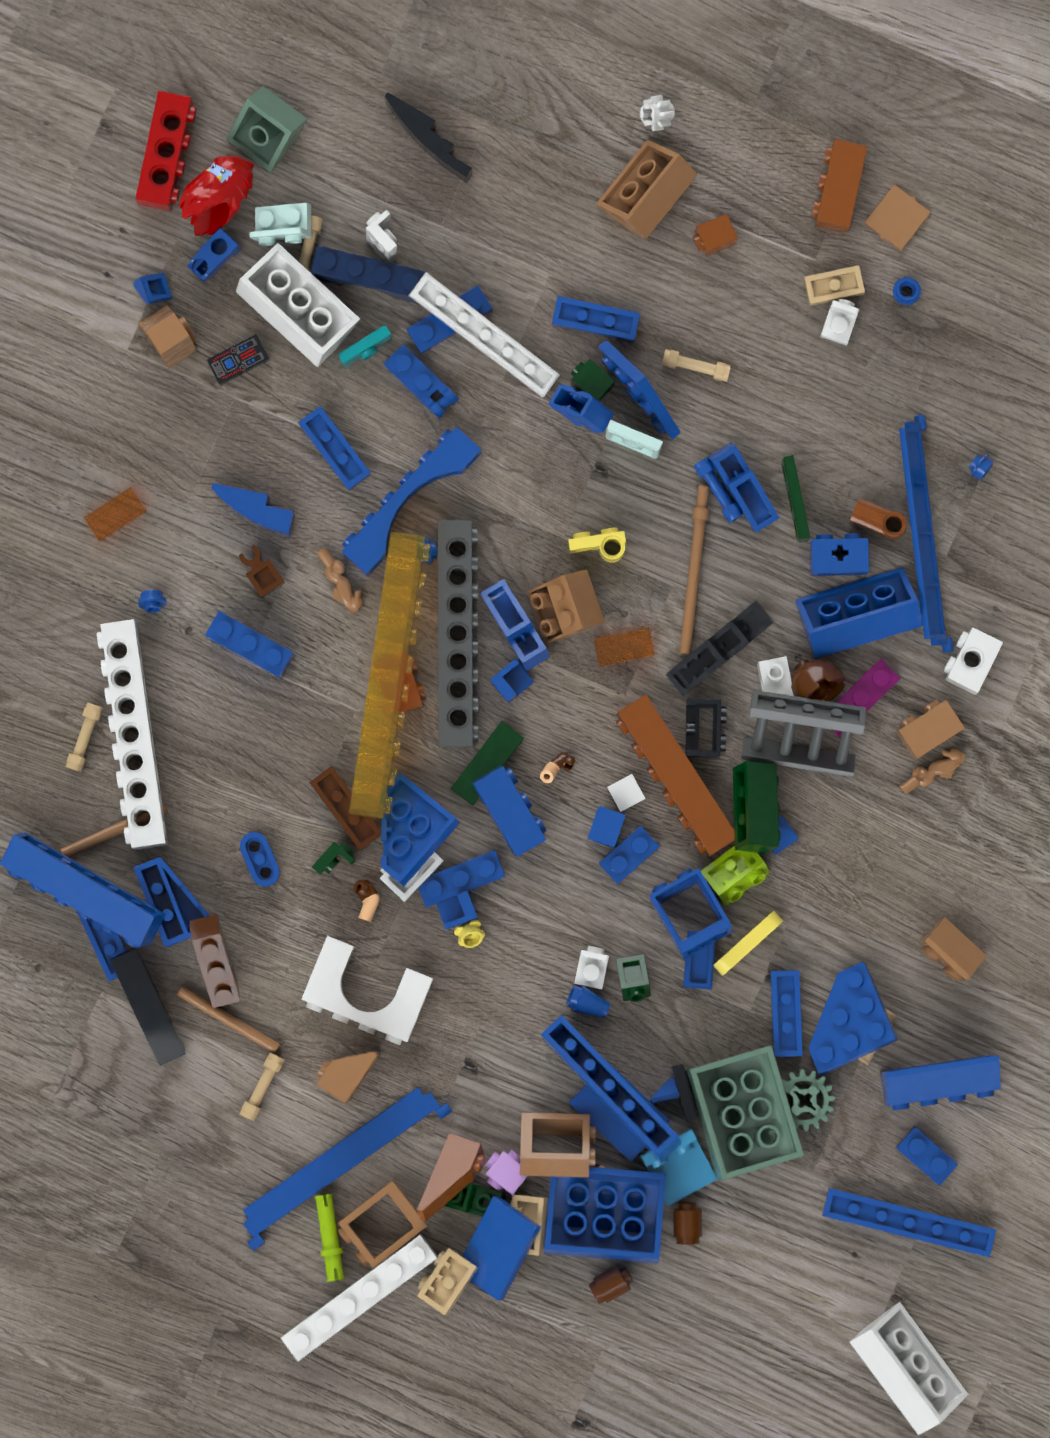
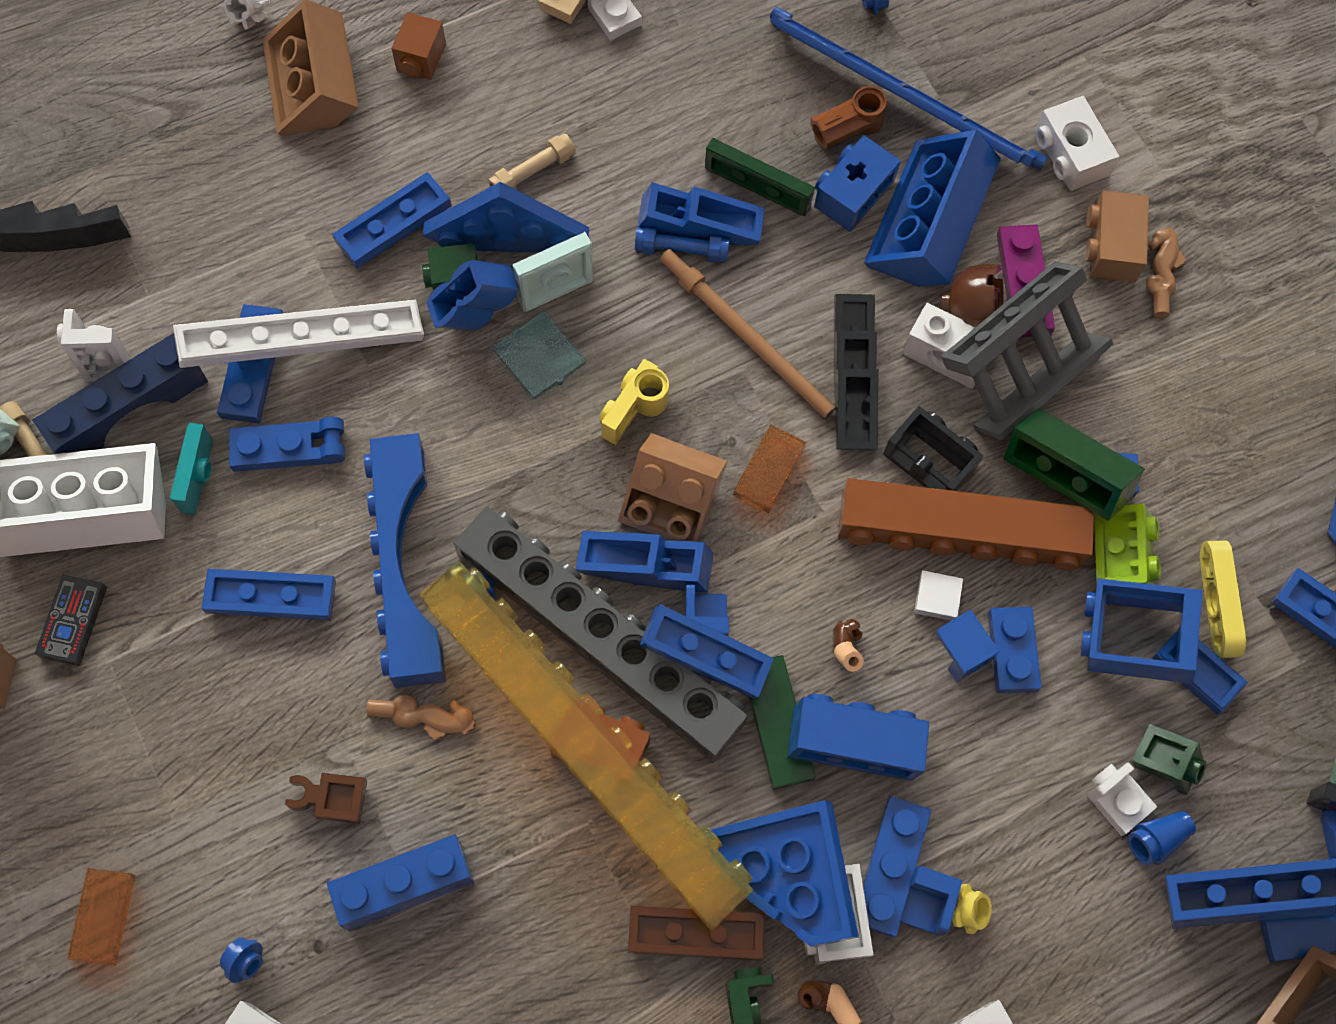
camera: 55 degrees left, 15 degrees down
(255, 508) = (249, 740): blue slope -> none
(487, 698) = (706, 651): none -> blue plate
(586, 468) = (539, 355): none -> clear light blue piece

